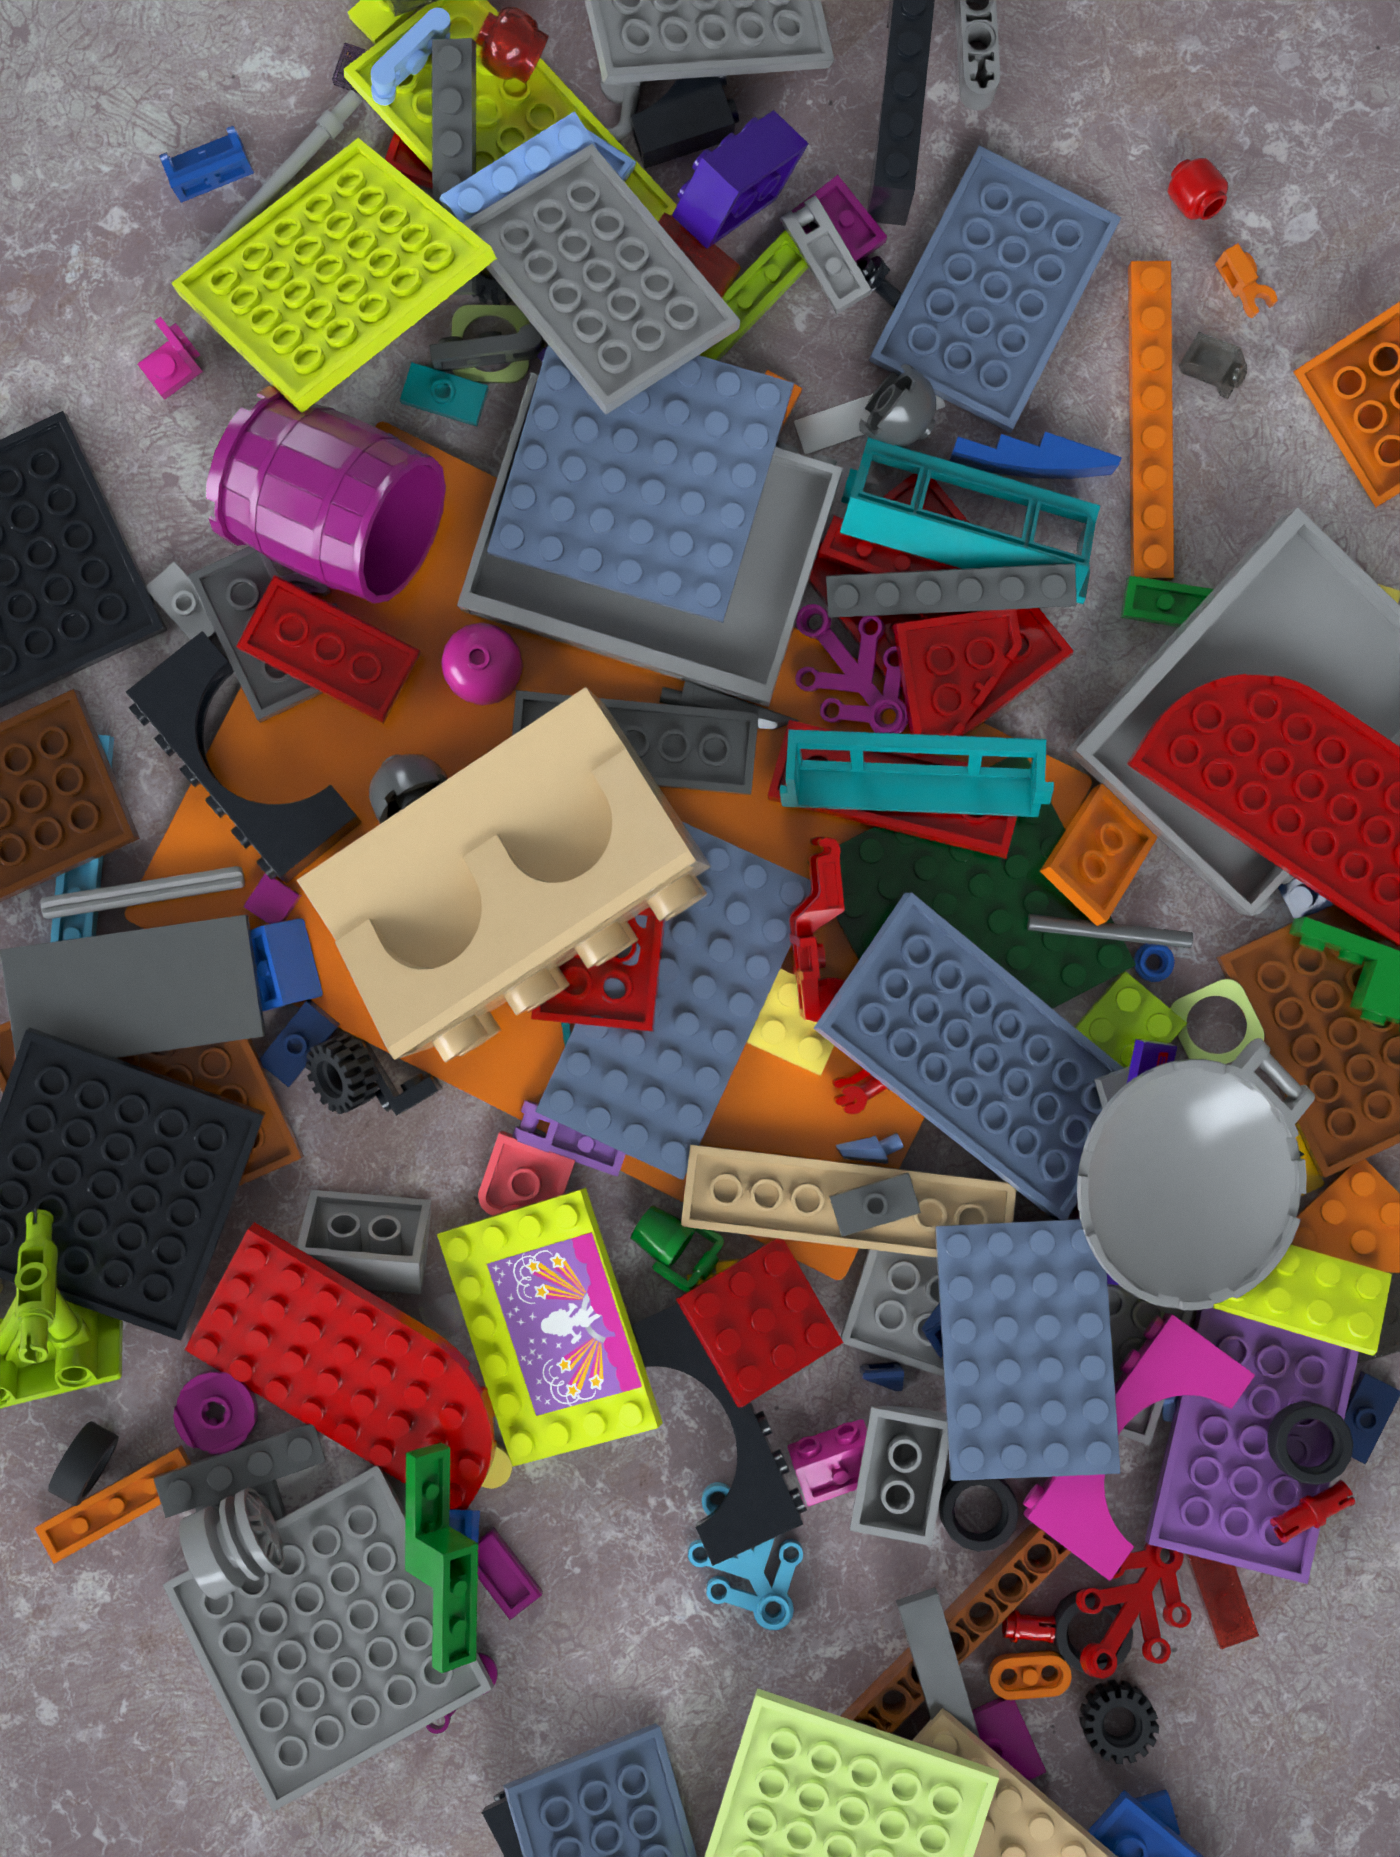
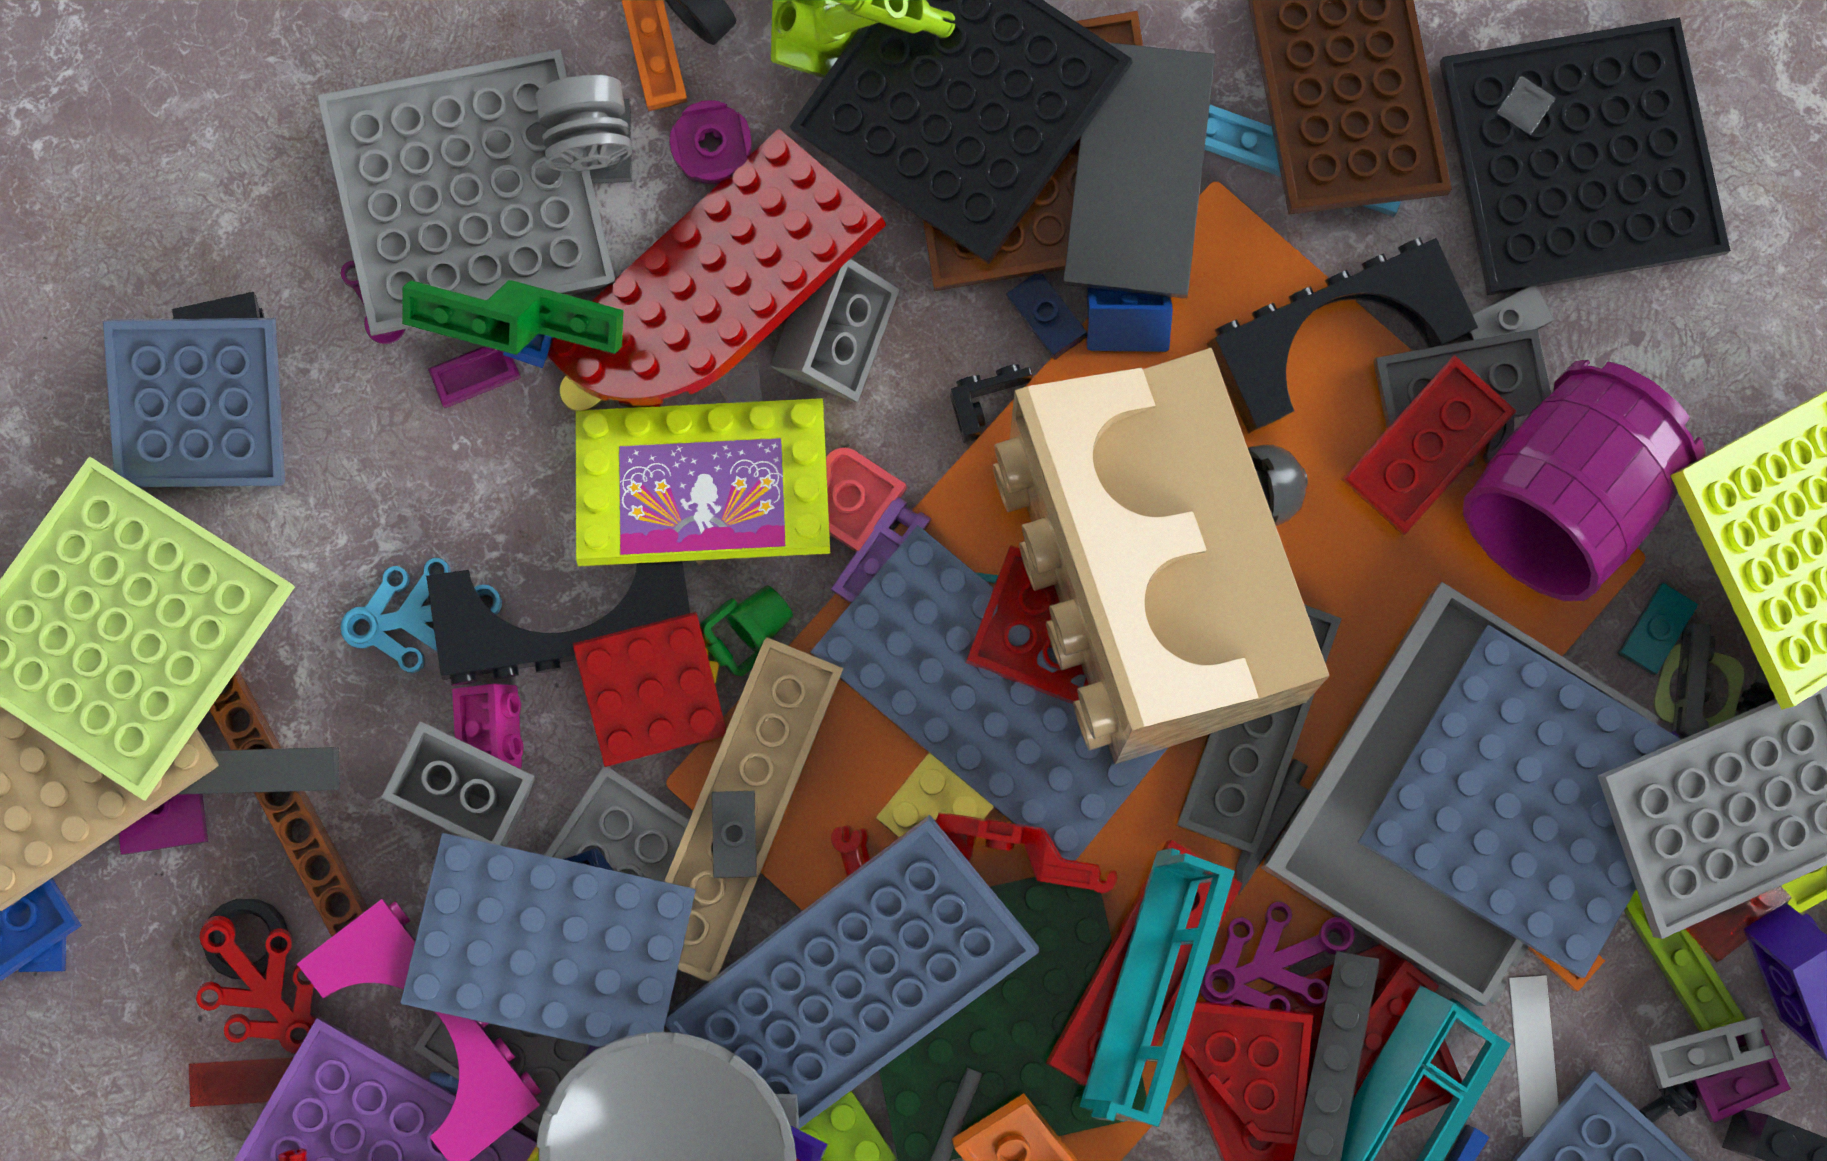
camera: 100 degrees right, 5 degrees down
(142, 892) = (1234, 204): light grey axle -> none
(172, 363) = (1753, 370): dark pink bracket -> none
(239, 1469) = (651, 151): dark grey plate -> none
(272, 900) = (1194, 325): magenta tile -> none
(342, 1073) = (1006, 347): black tyre -> none
(482, 664) = (1376, 592): dark pink cylinder -> none
(870, 1149) = (788, 848): medium blue bar -> none
(884, 1374) = (559, 801): dark blue slope -> none
(901, 409) = (1531, 1087): dark grey cylinder -> none
(985, 1540) = (367, 854): black tyre -> none
(1028, 1627) = (268, 875): red pin -> none
(1028, 1676) = (217, 862): orange plate -> none
(1119, 1746) = (122, 941): black tyre -> none

